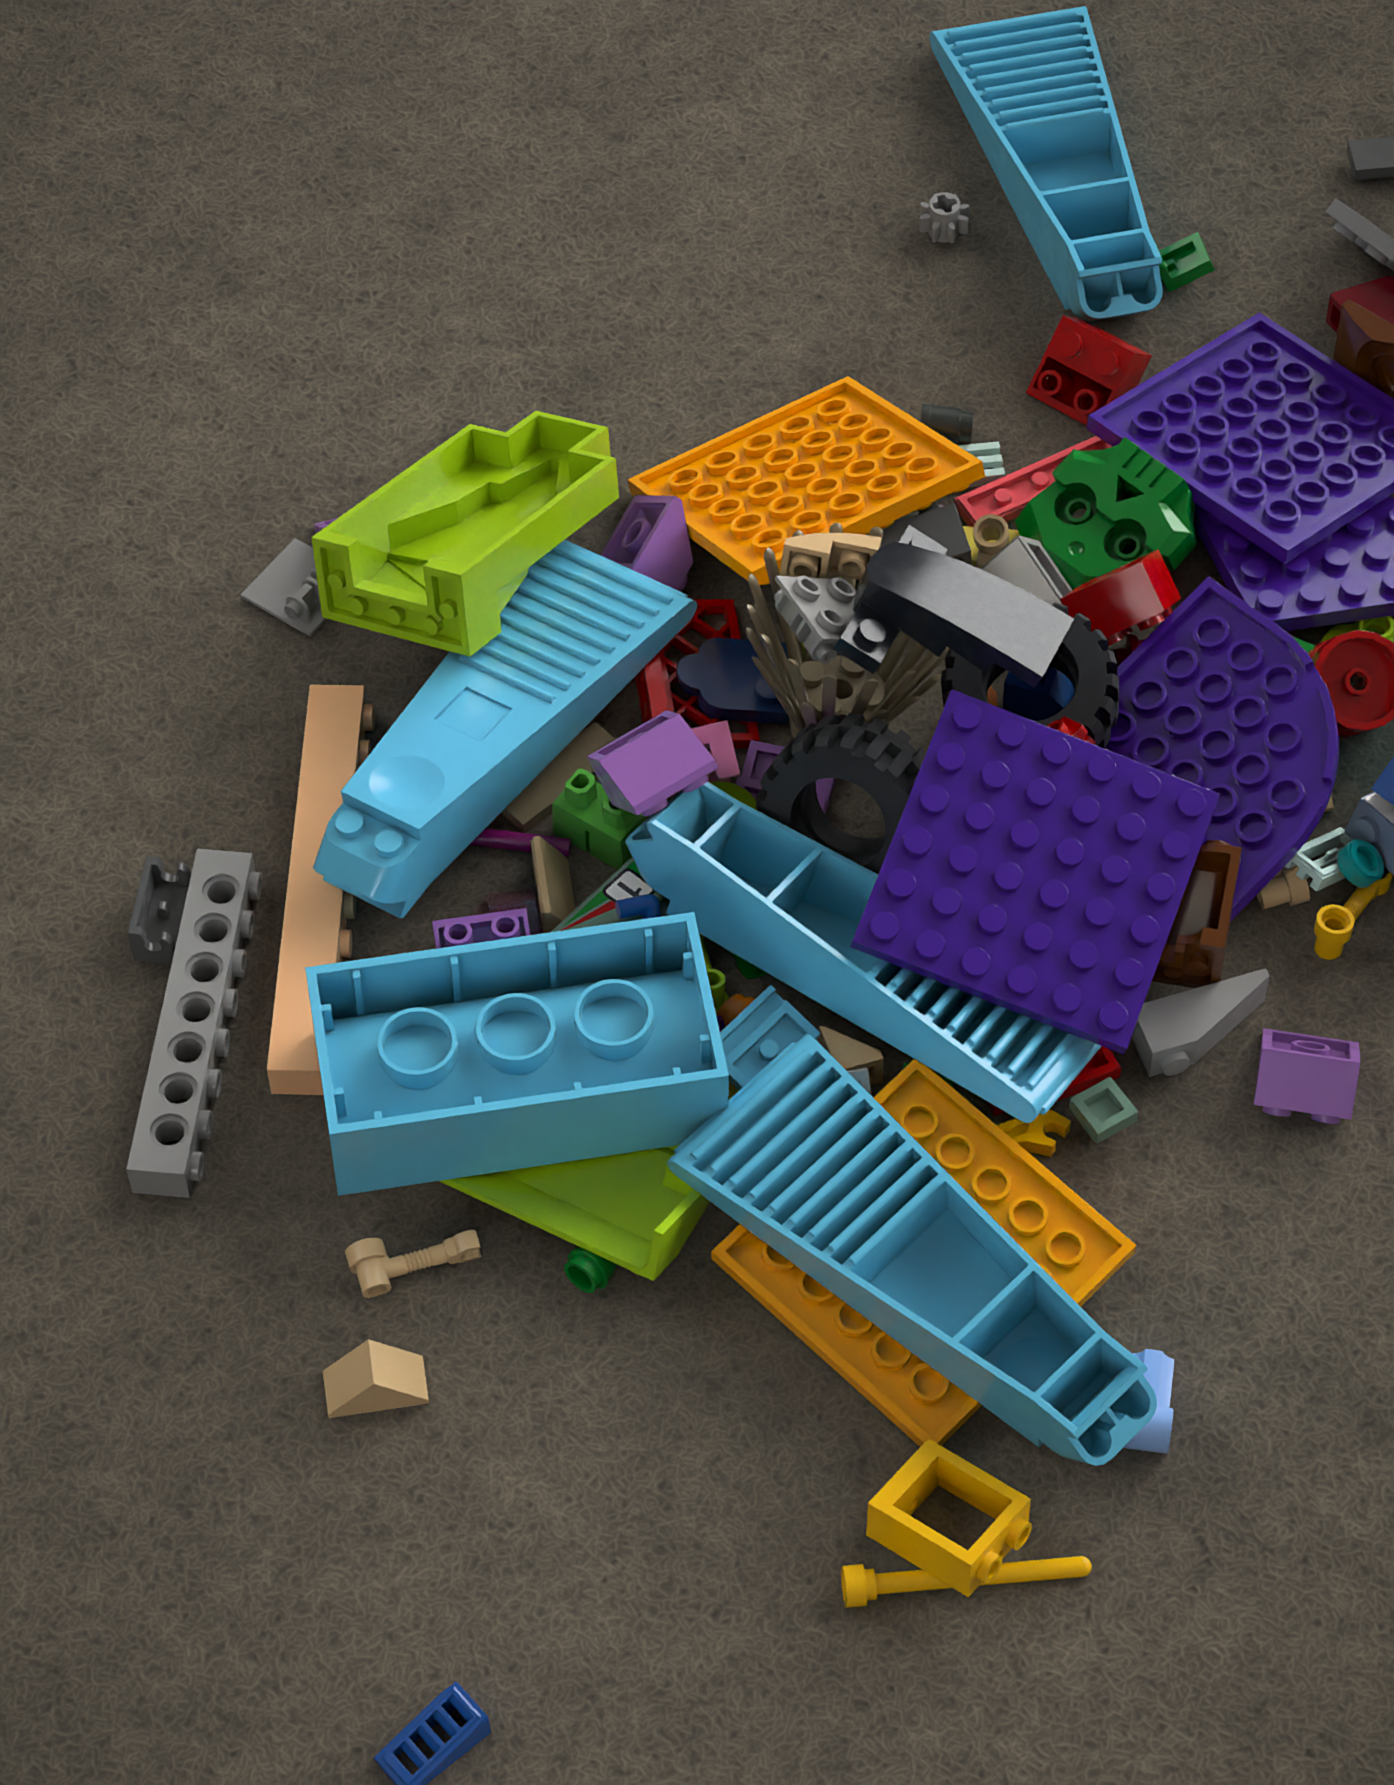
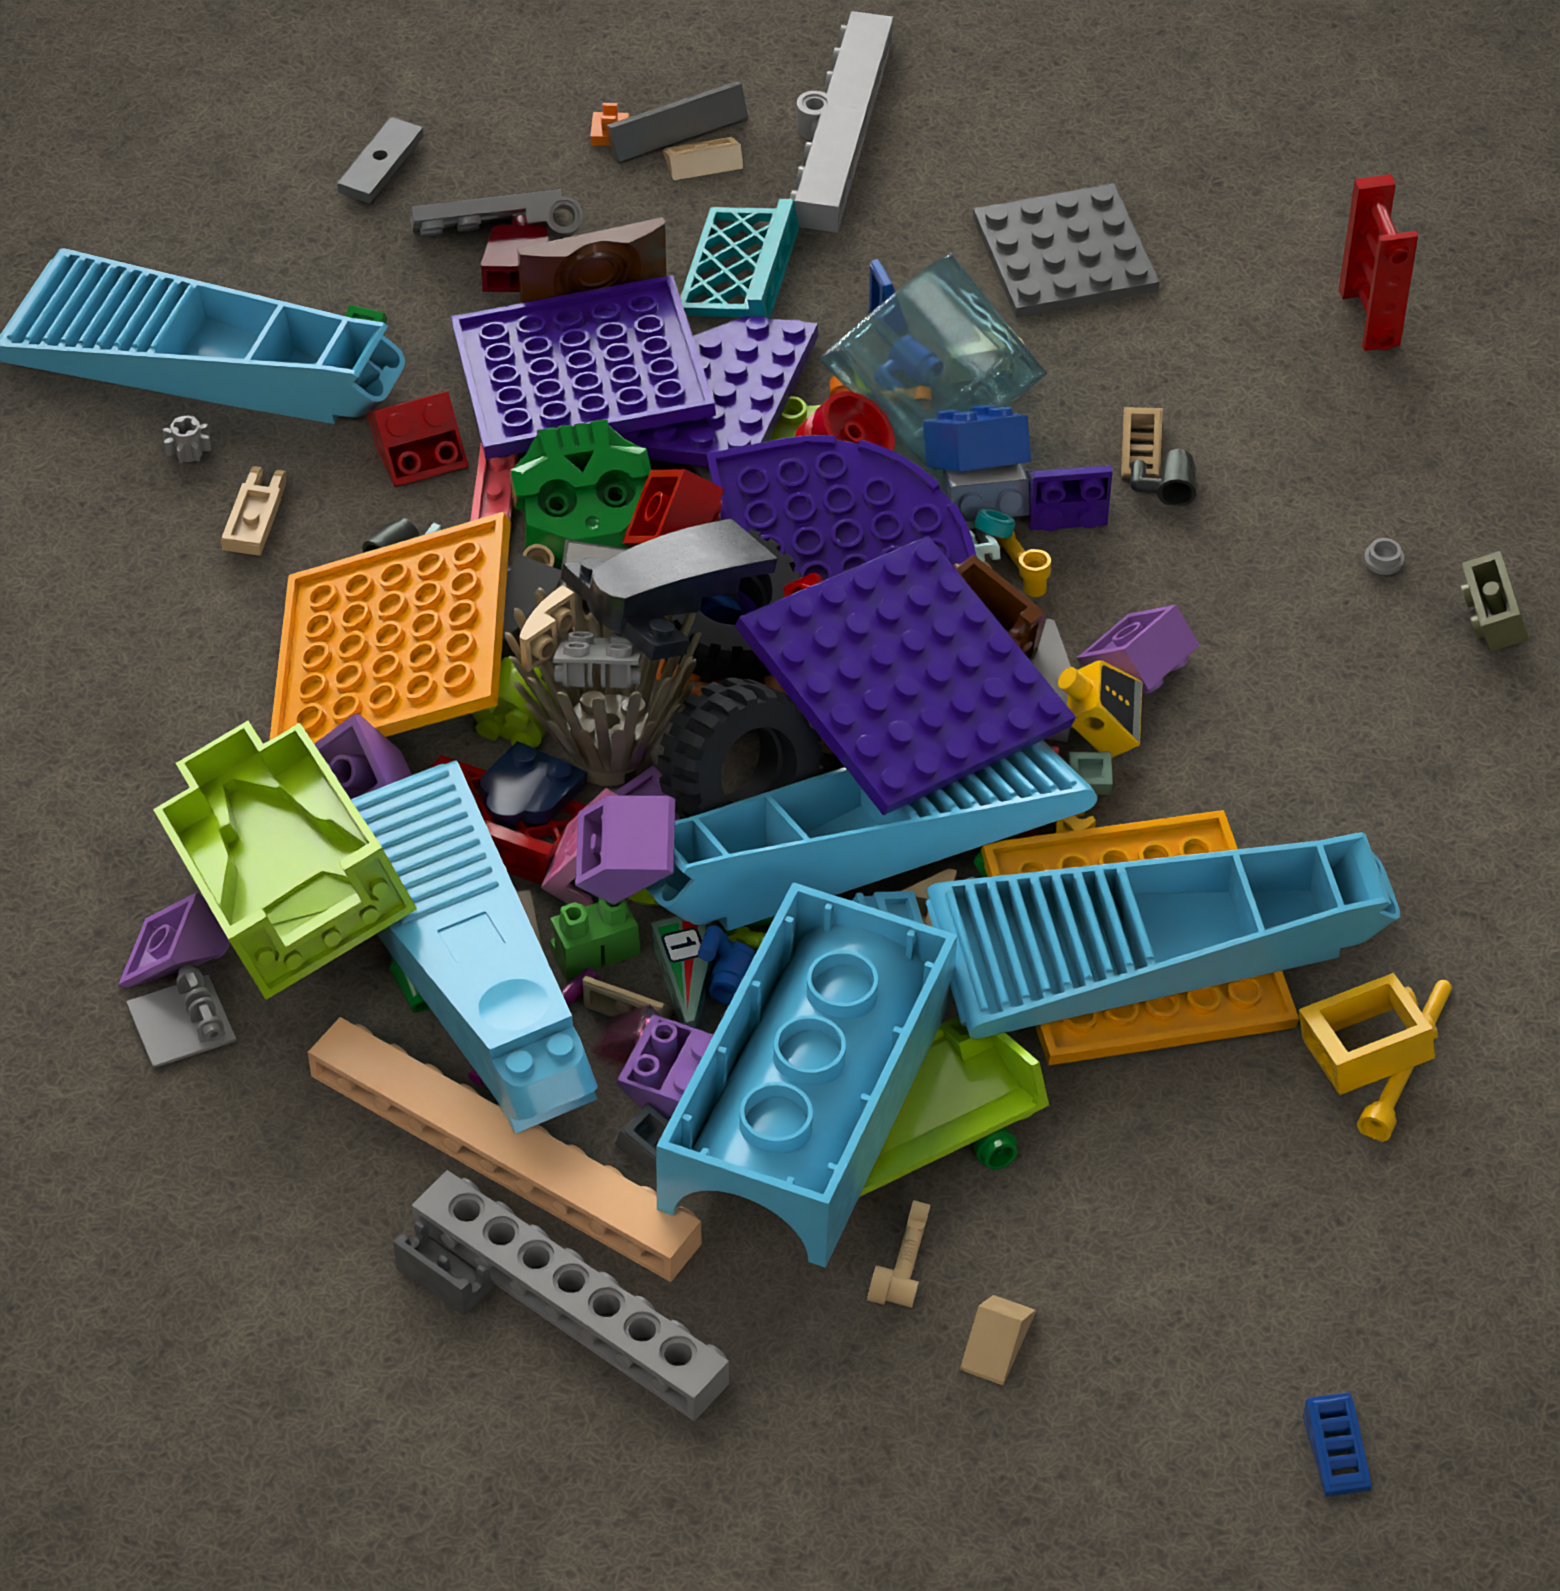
camera: 60 degrees left, 5 degrees down
(905, 311) = (253, 513): none -> tan hinge
(1190, 1072) = (1105, 706): none -> yellow torso

